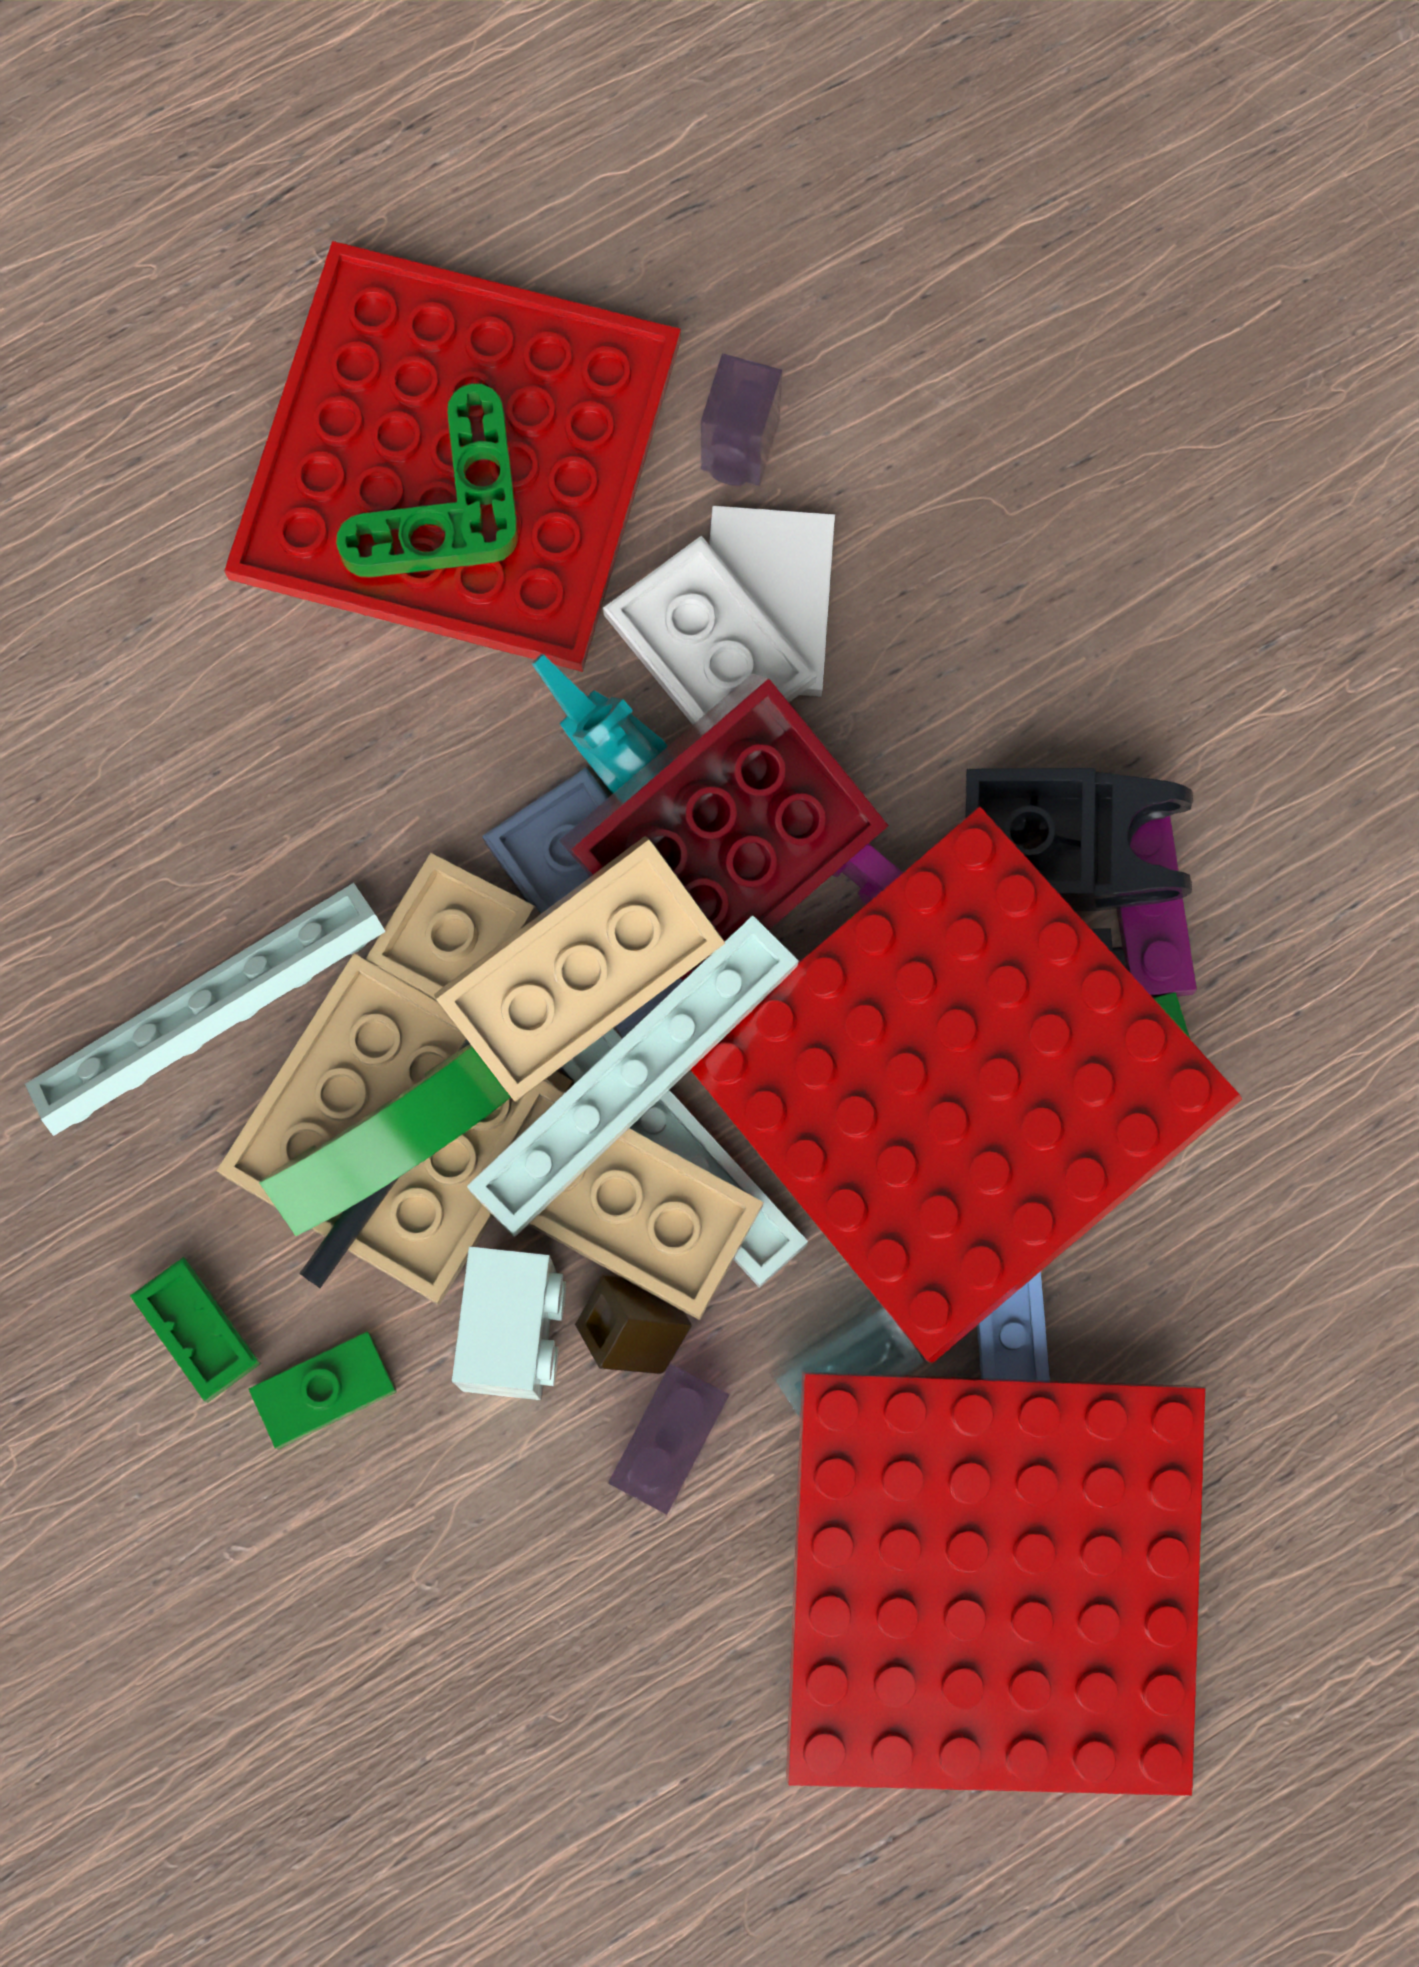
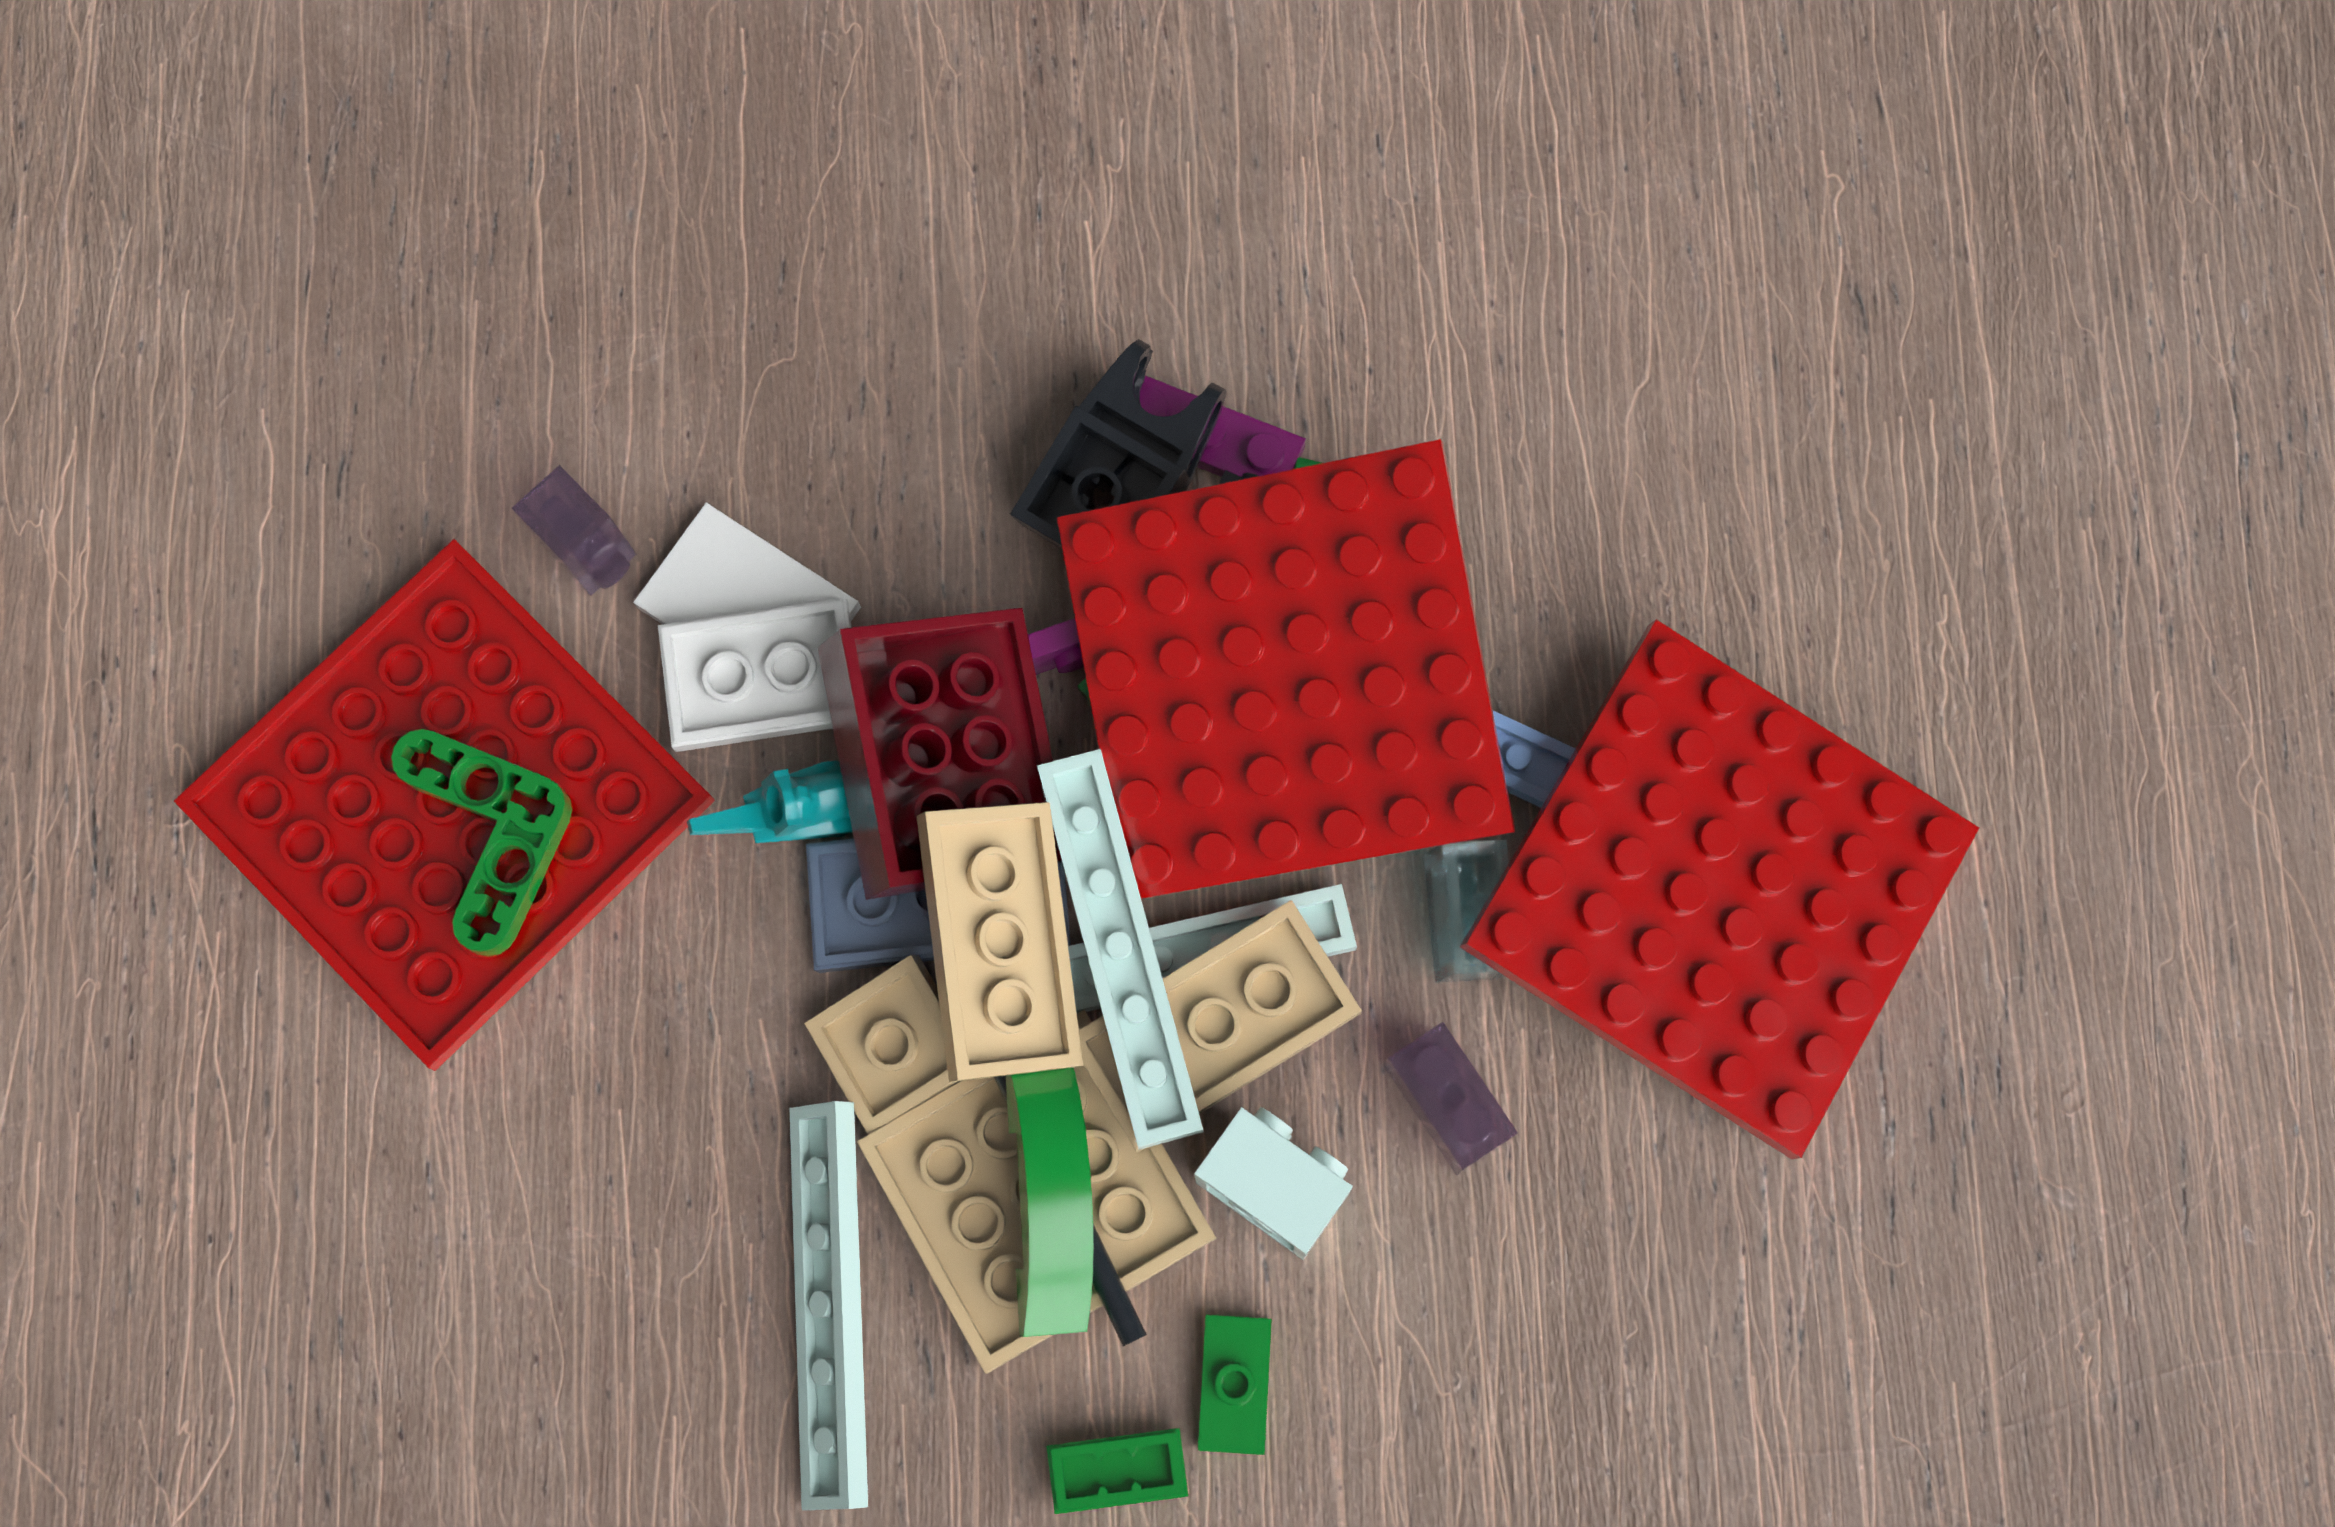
camera: 55 degrees left, 0 degrees up
(631, 1327) = (1331, 1079): dark brown panel -> none

